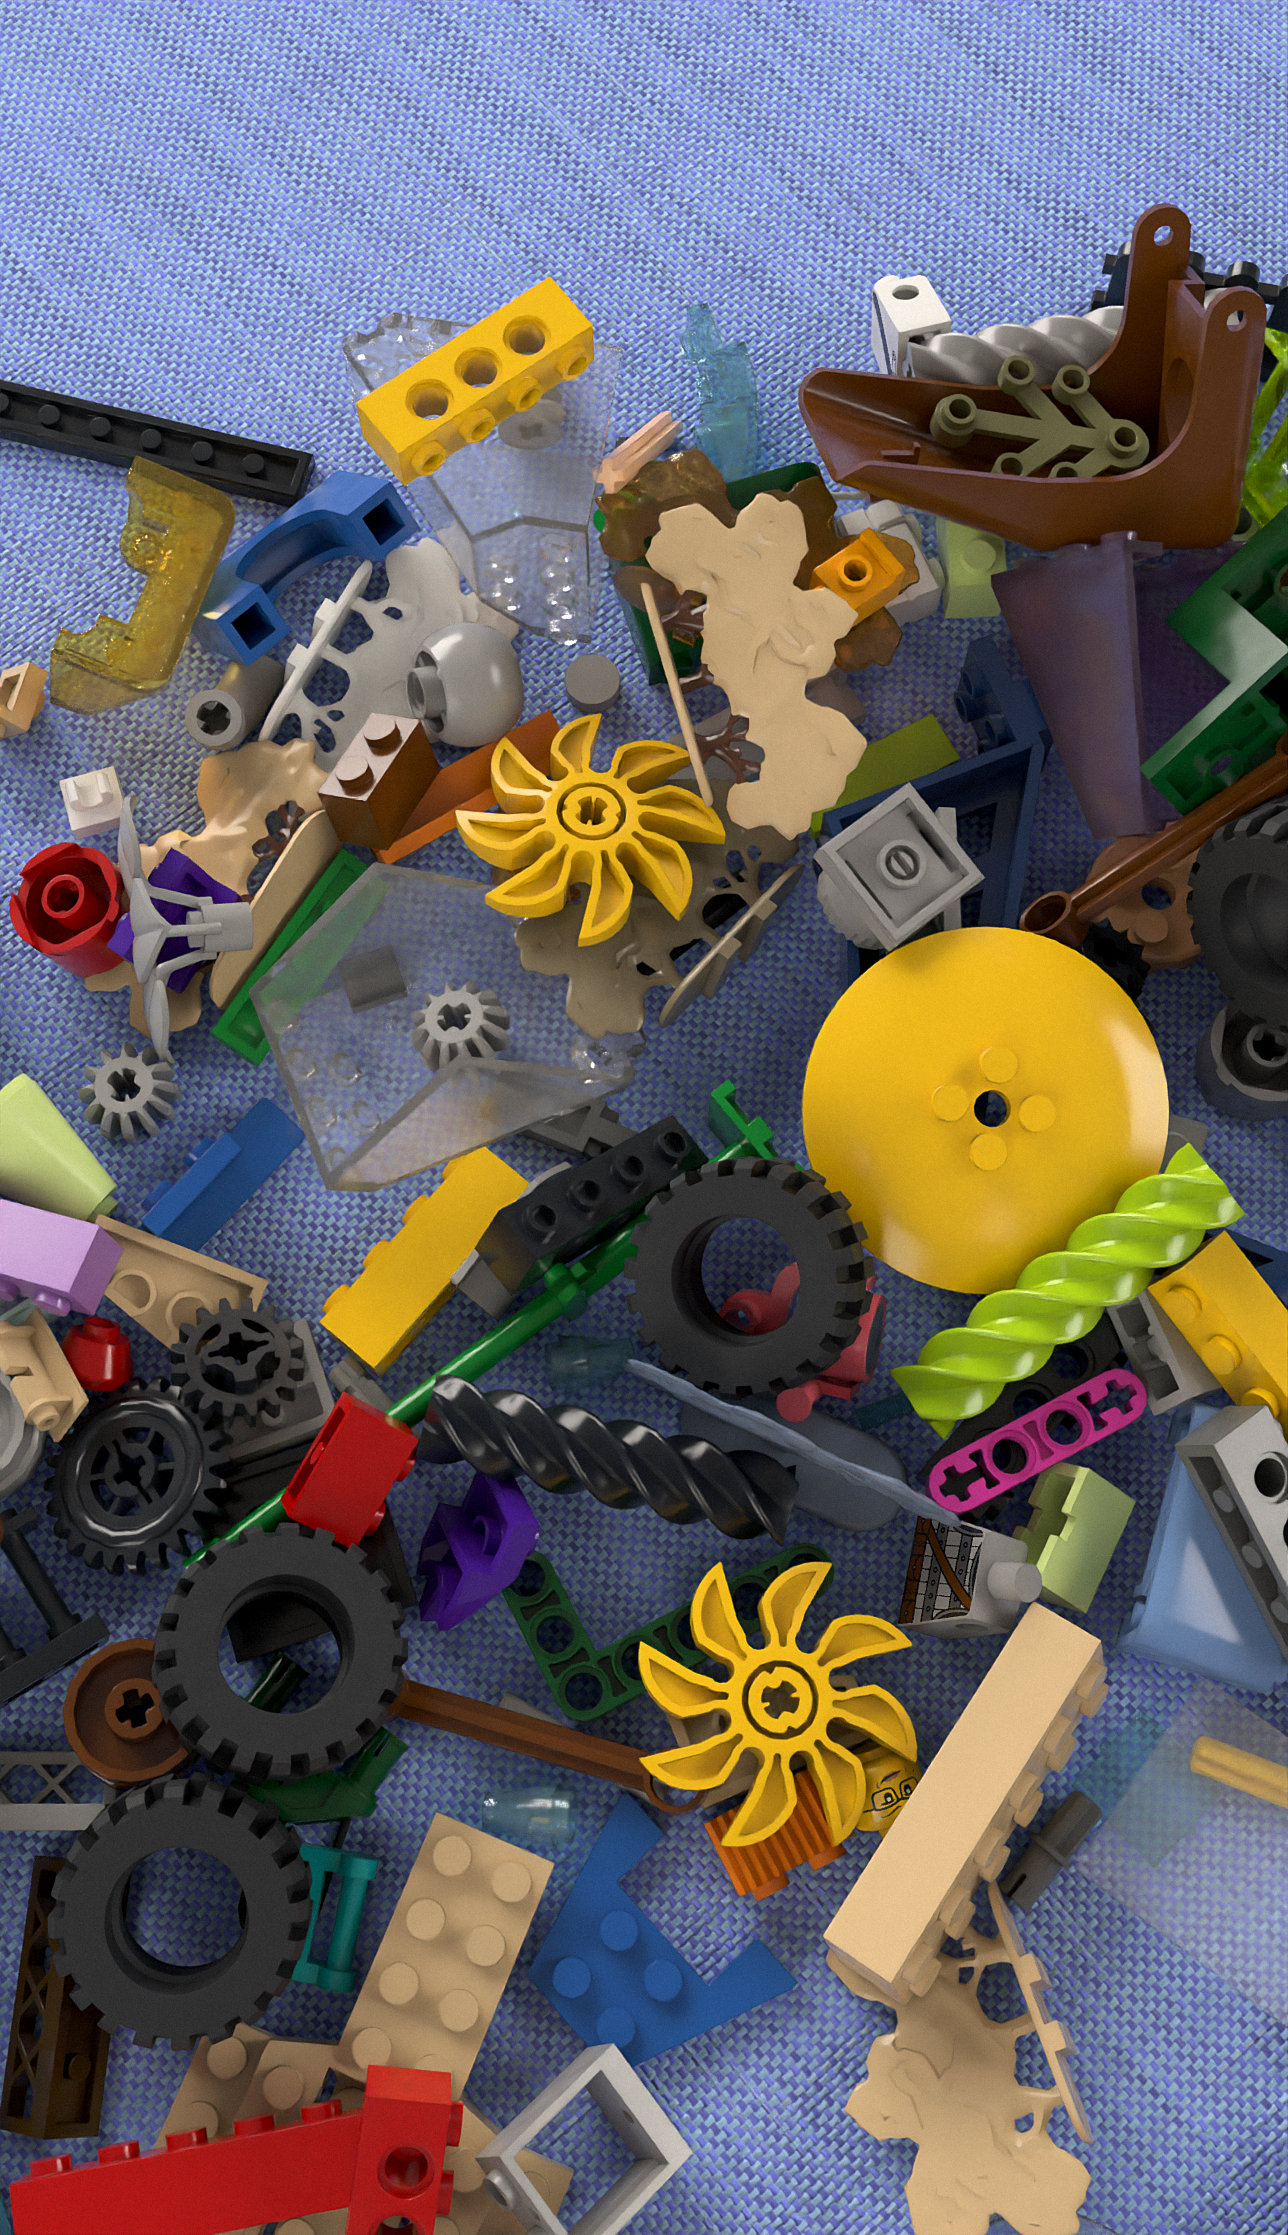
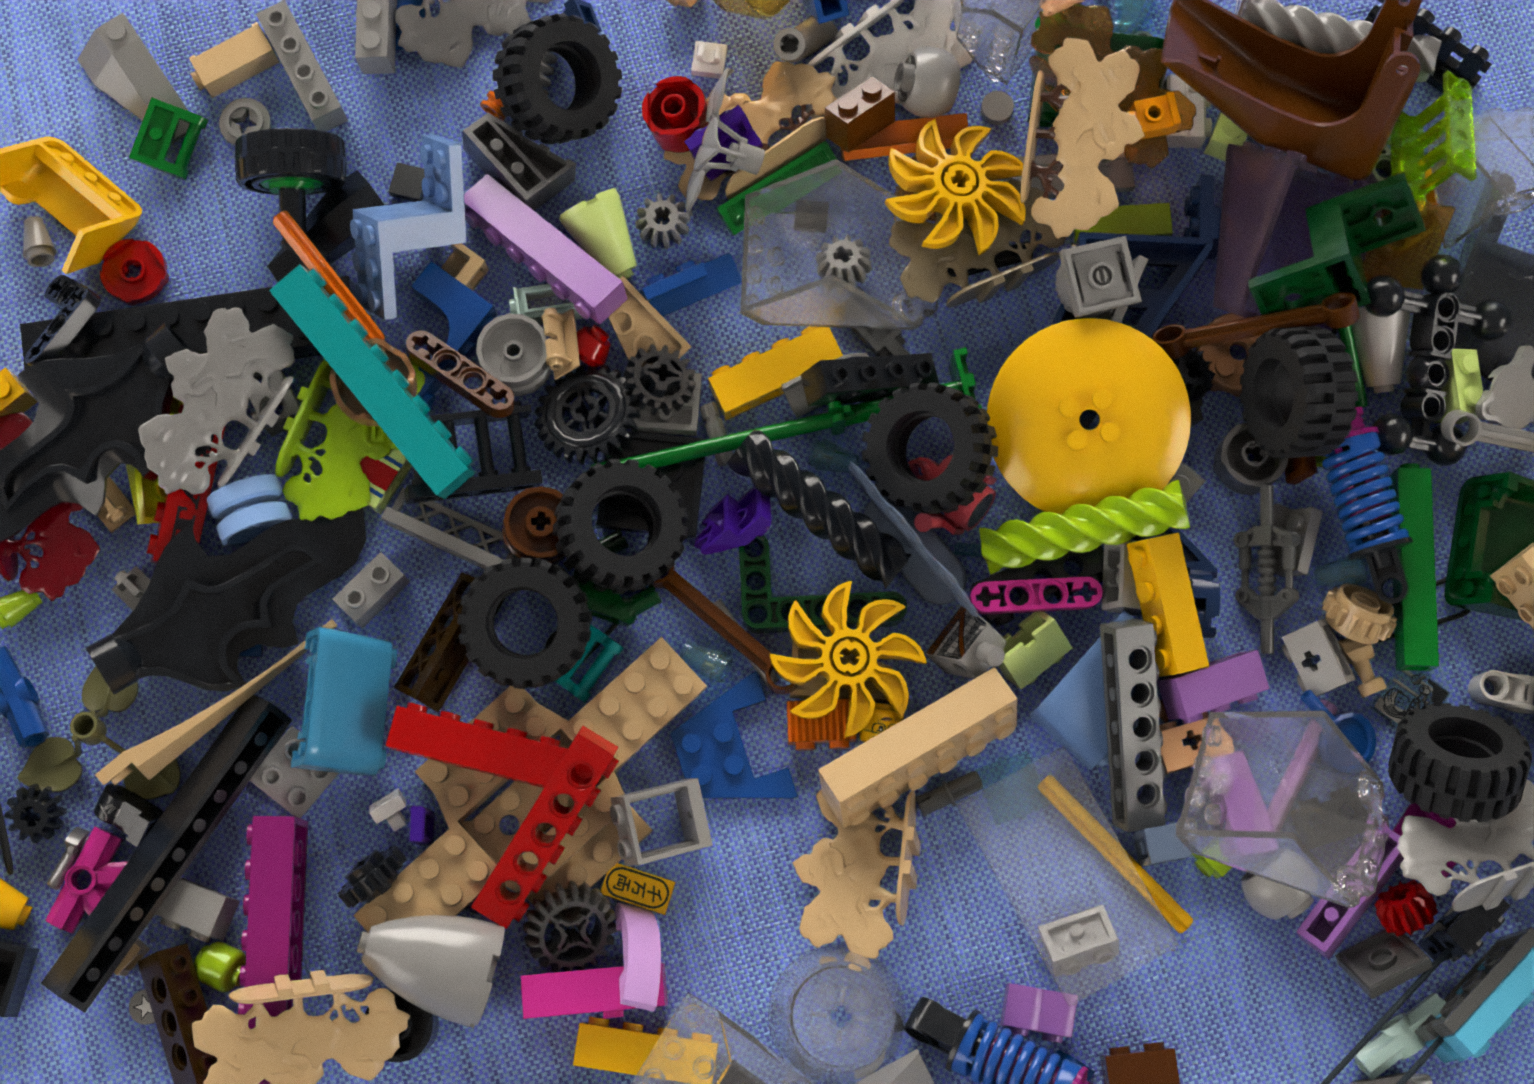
camera: 25 degrees right, 5 degrees up
(350, 1471) = (692, 456): red brick -> none
(1049, 428) = (1299, 78): olive plant -> none

